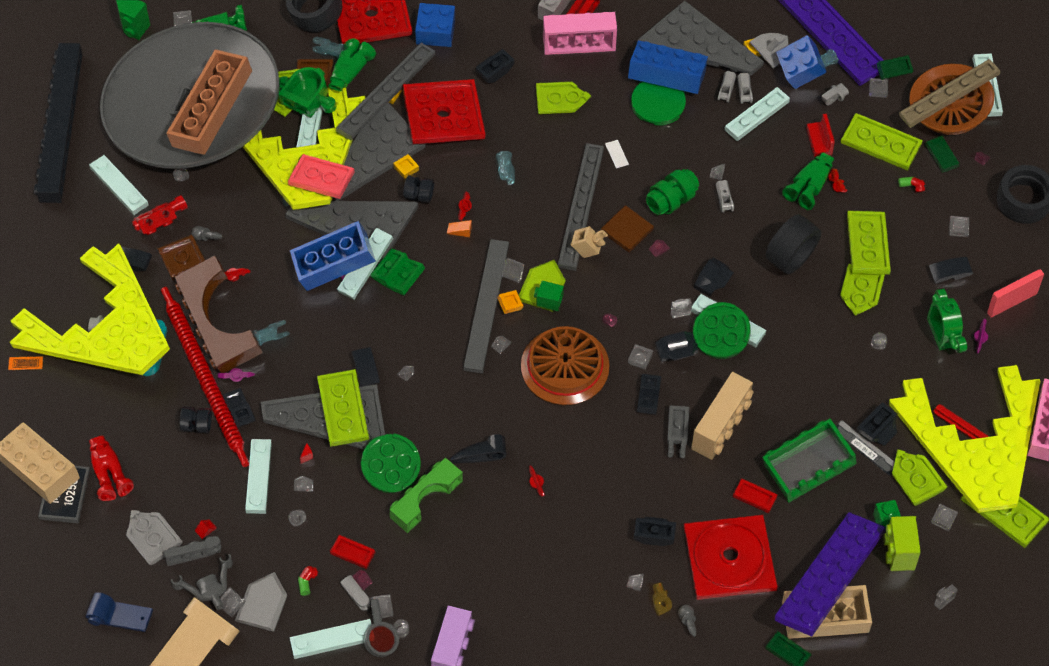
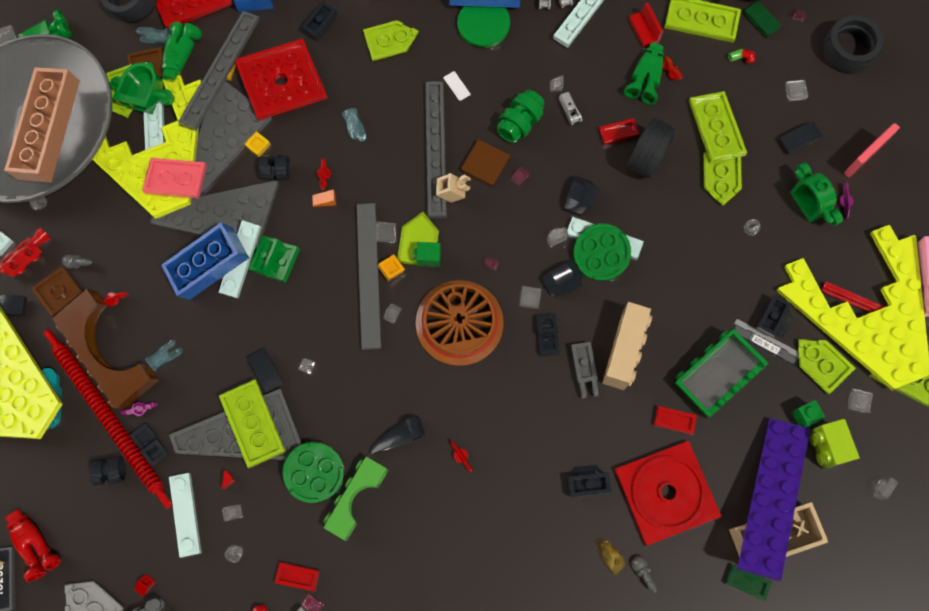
camera: 10 degrees left, 15 degrees up
(635, 581) = (582, 542): clear piece -> none
(765, 227) = (619, 131): none -> red tile

